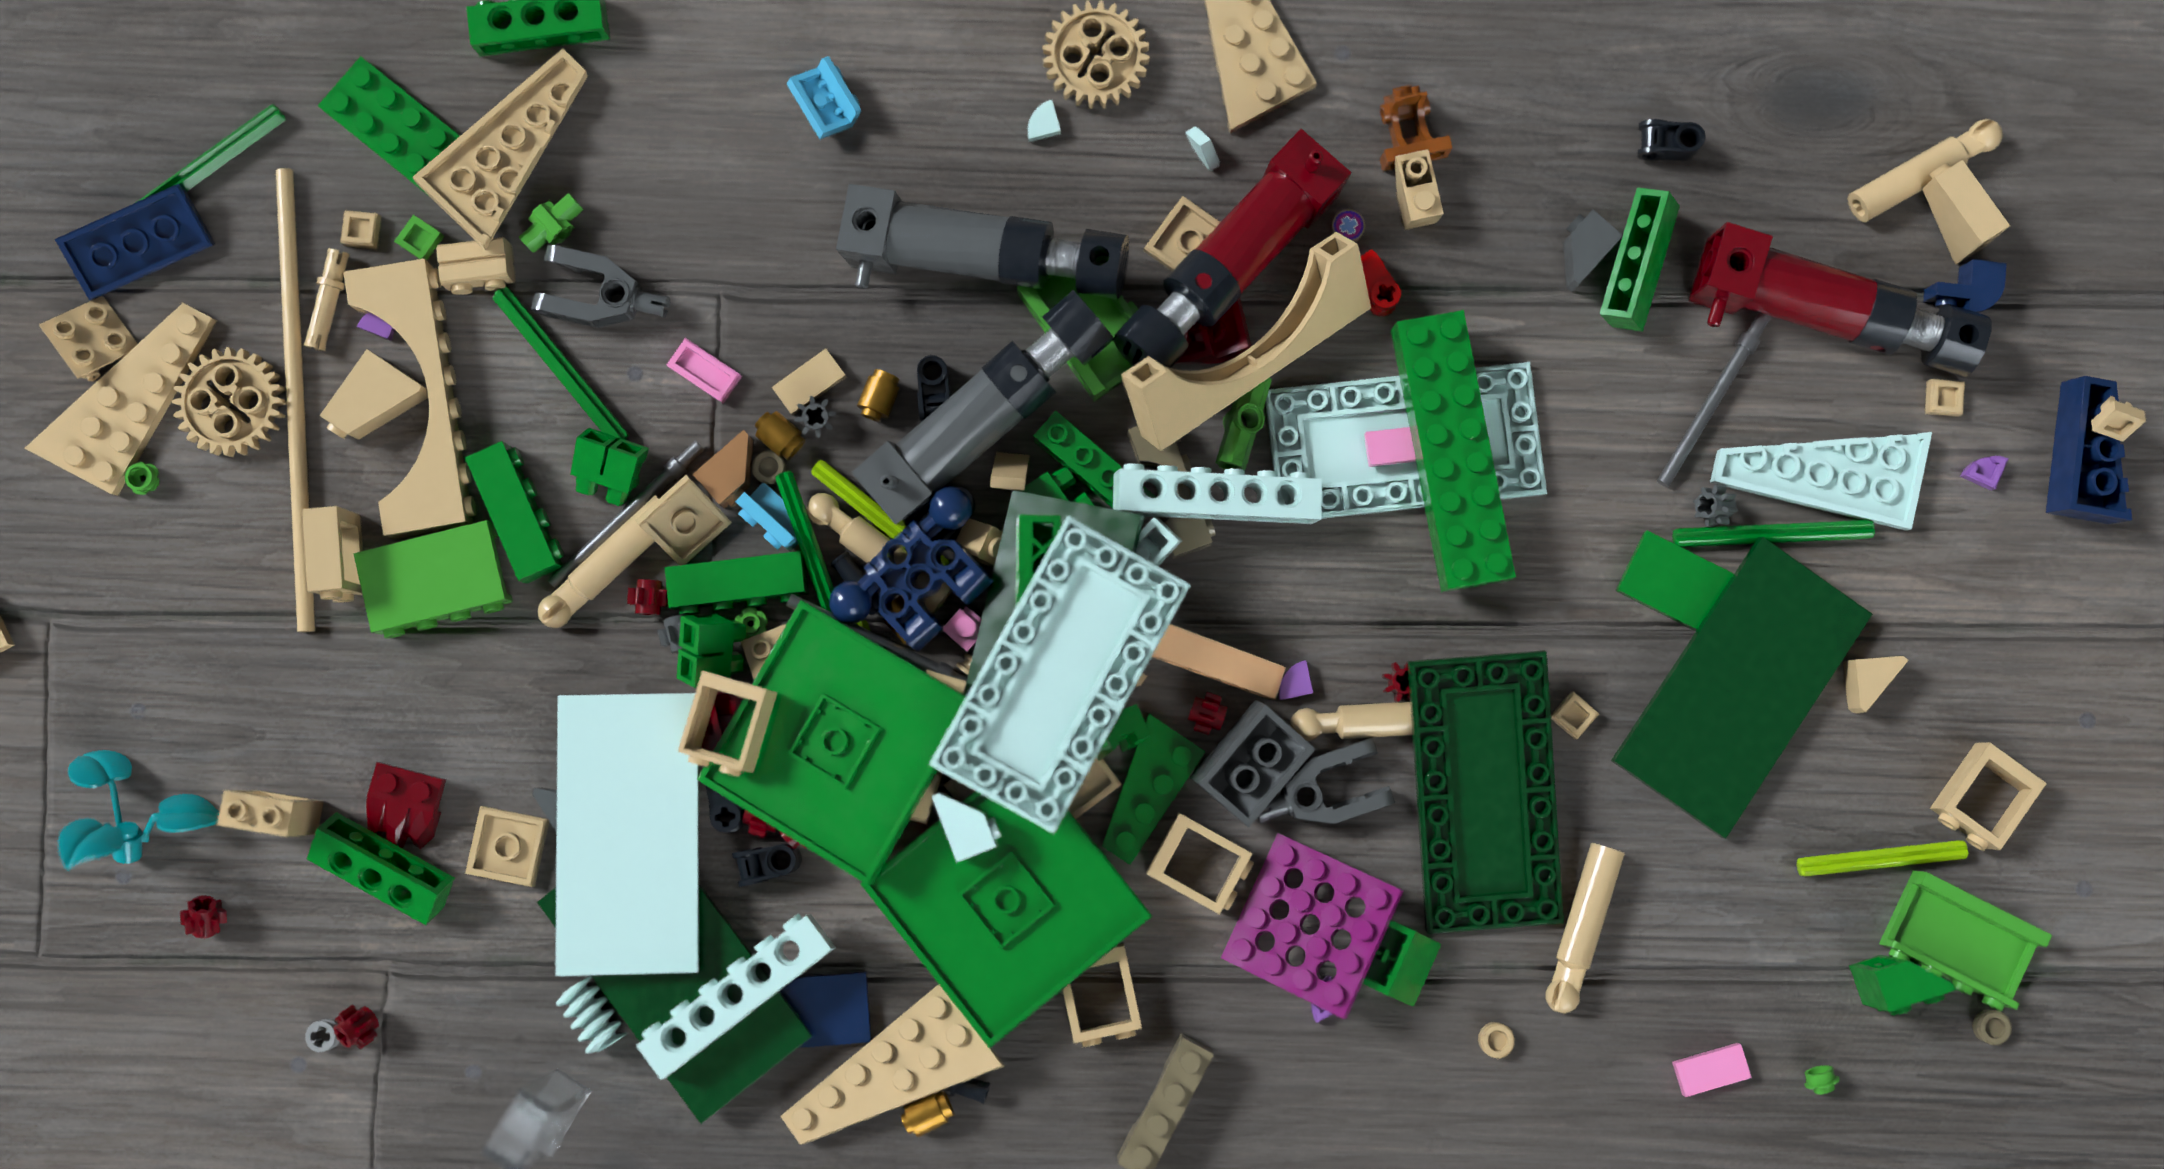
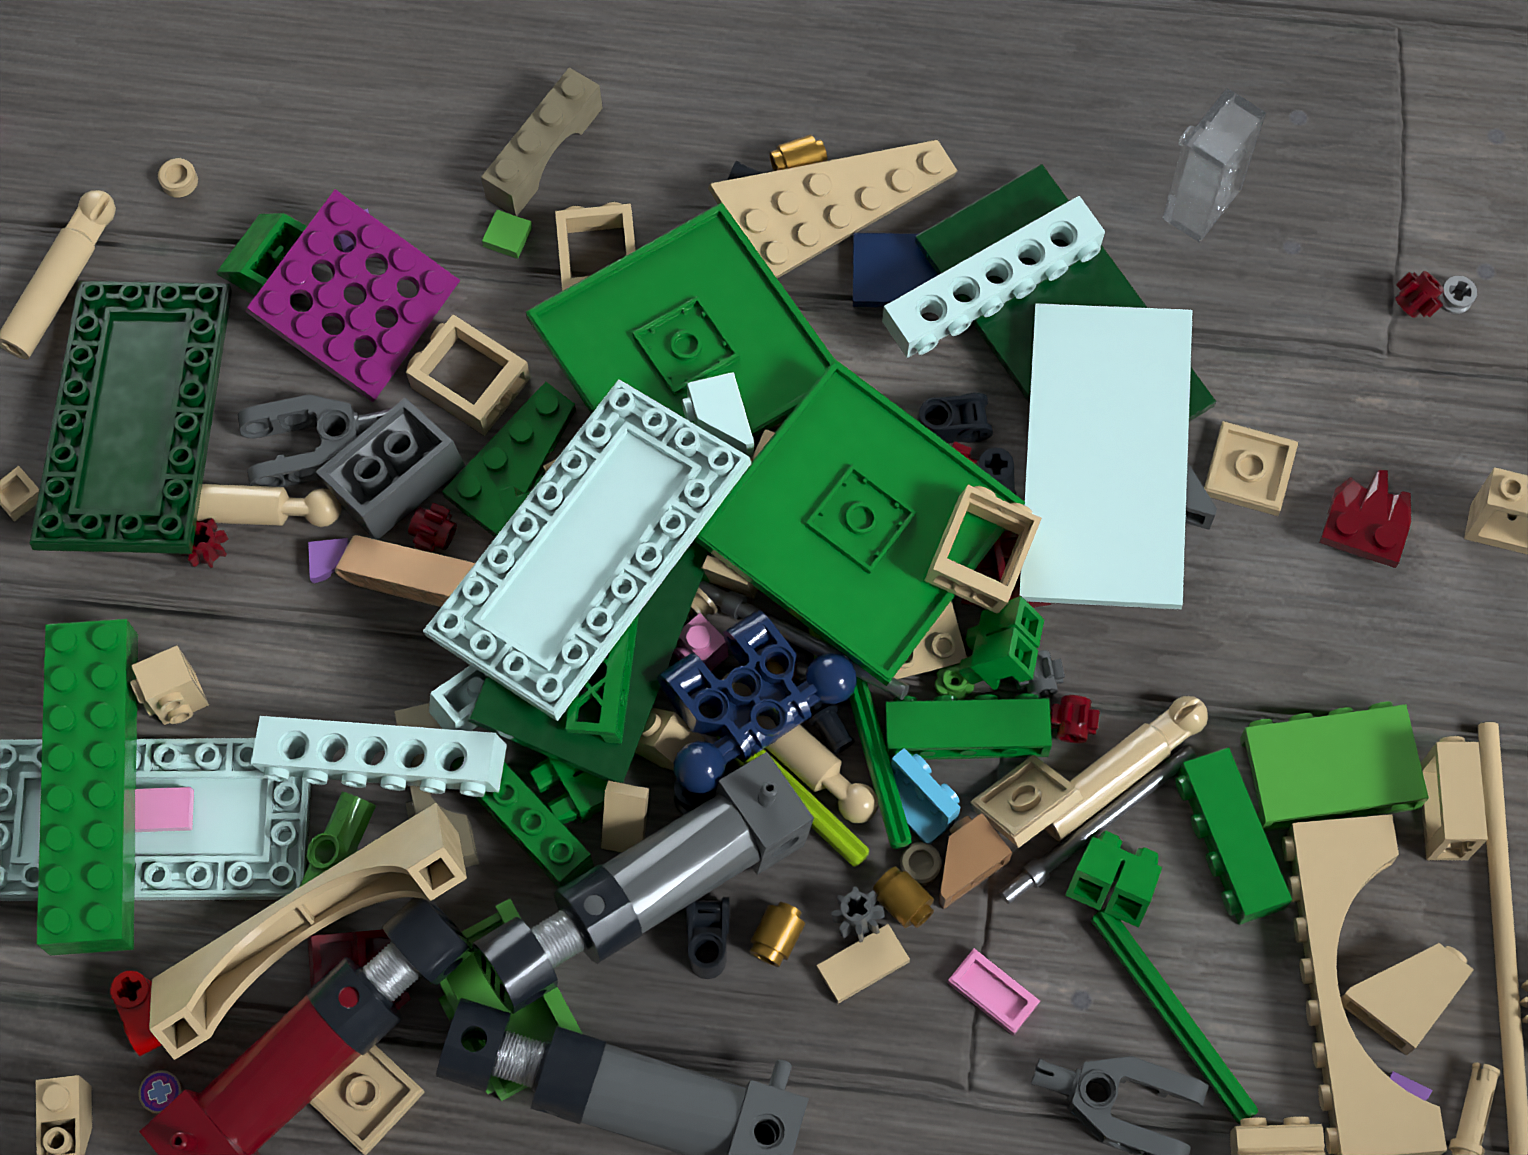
camera: 170 degrees left, 15 degrees down
(380, 868) = (1393, 450): green brick -> none
(590, 1016) = (1154, 279): light aqua piece -> none
(1185, 1011) = (507, 234): none -> bright green tile
(1403, 542) = (168, 686): none -> tan brick

